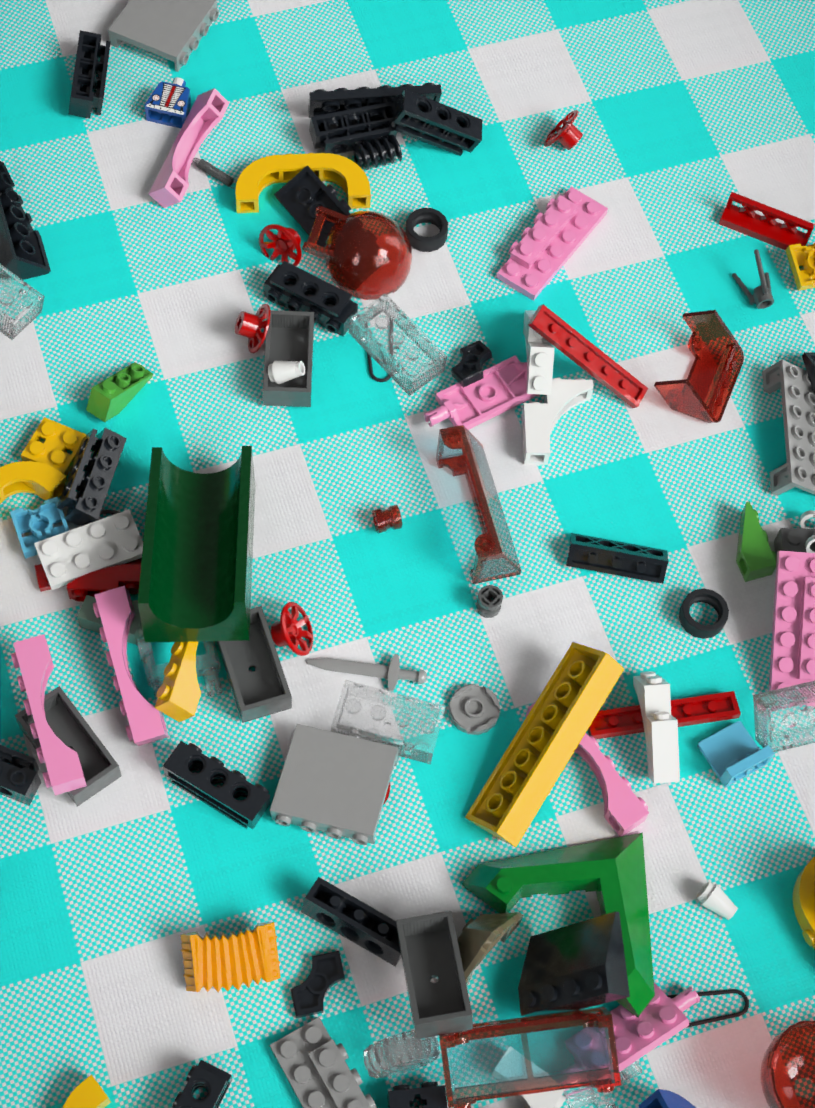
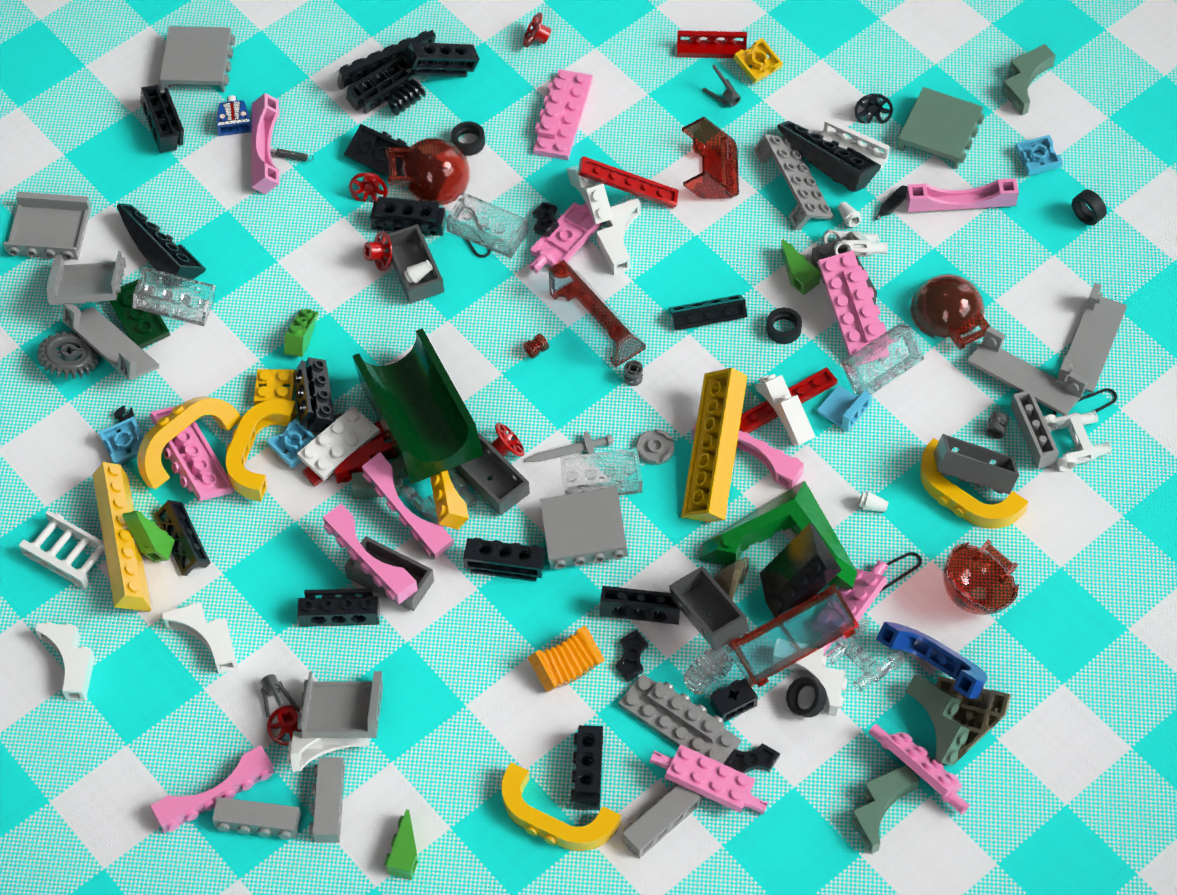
camera: 15 degrees left, 5 degrees down
(283, 168) = (344, 131): yellow arch -> none

